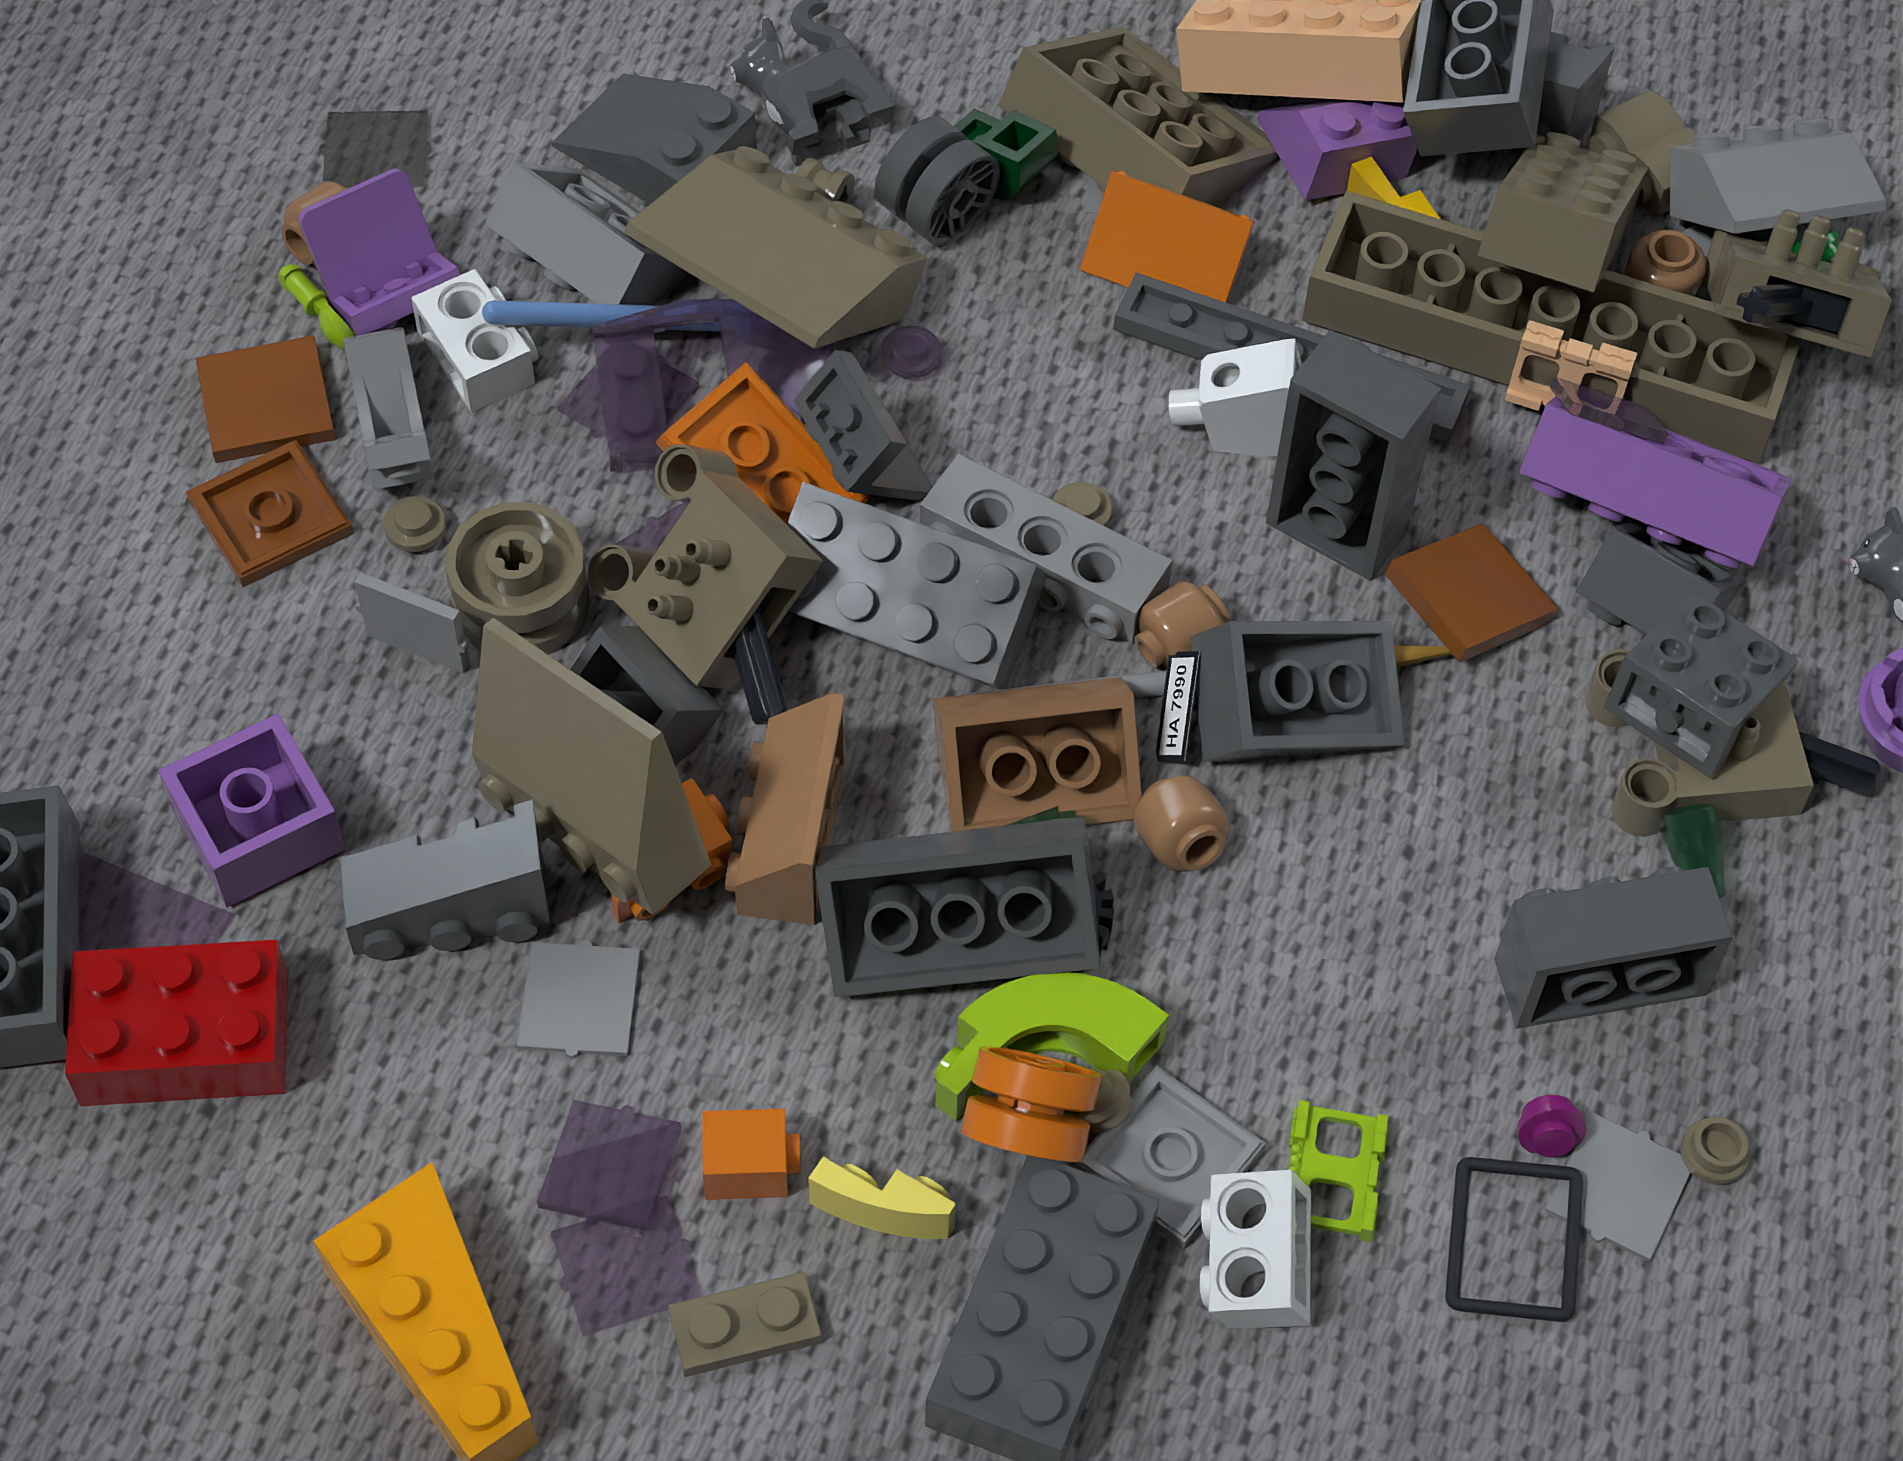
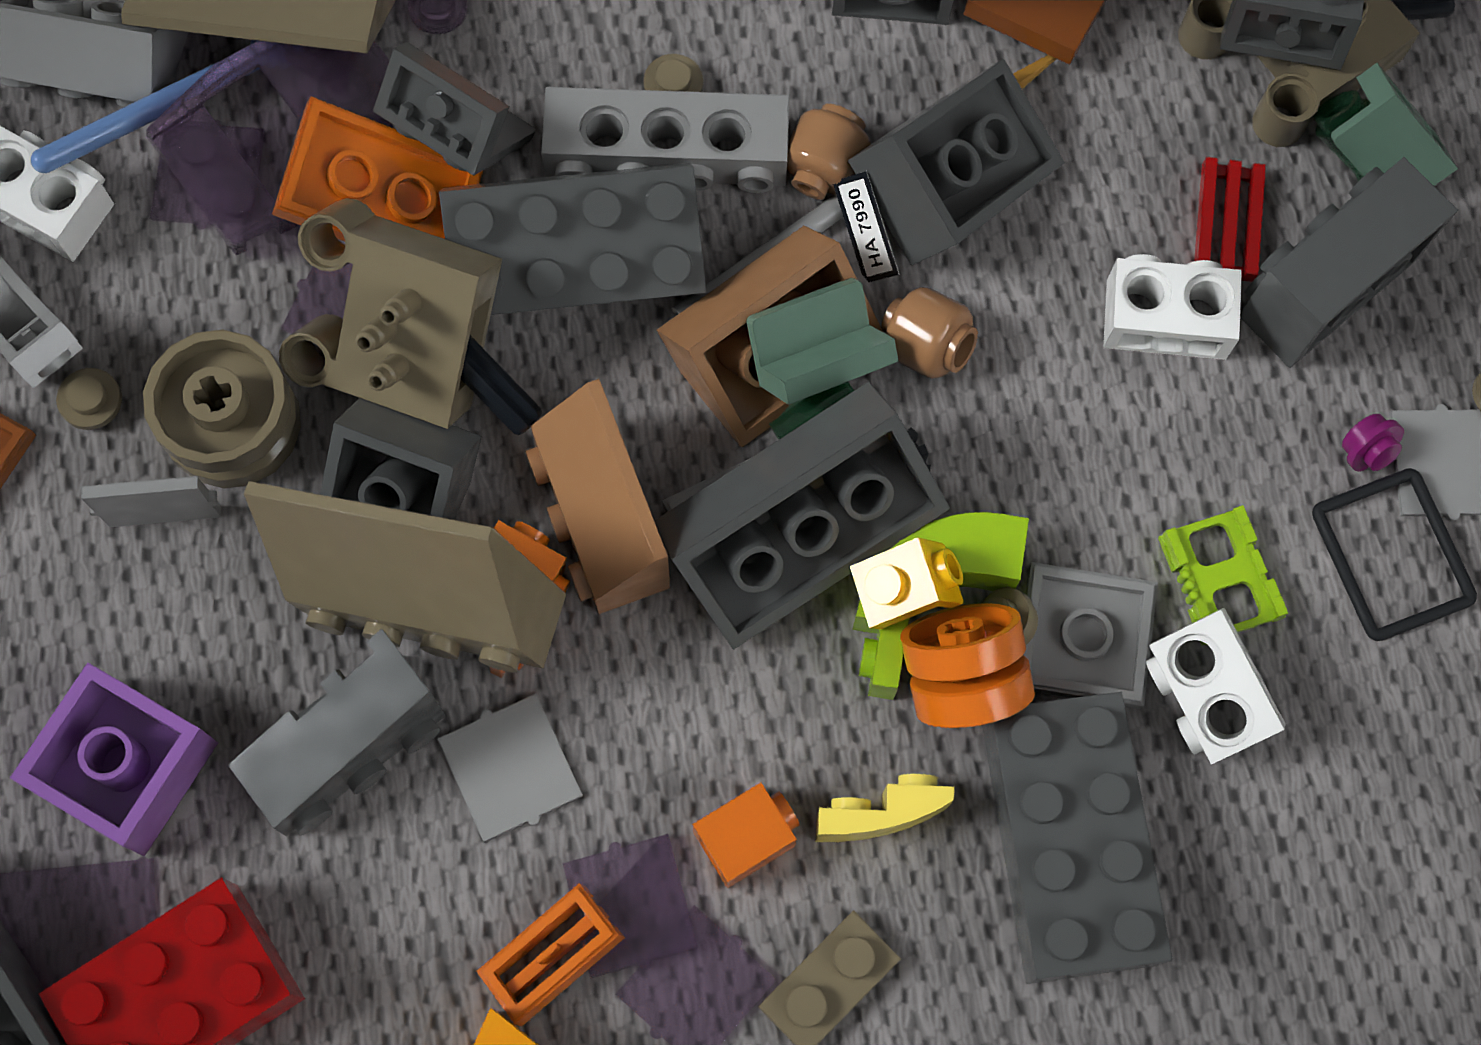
camera: 30 degrees left, 15 degrees up
(514, 1173) = (564, 976): none -> orange tile
(1019, 1002) = (907, 582): none -> bracket
(1068, 770) = (817, 342): none -> sand green panel
(1416, 924) = (1173, 323): none -> white brick
(1562, 832) = (1234, 174): none -> red tile
(1738, 858) = (1390, 131): none -> sand green panel

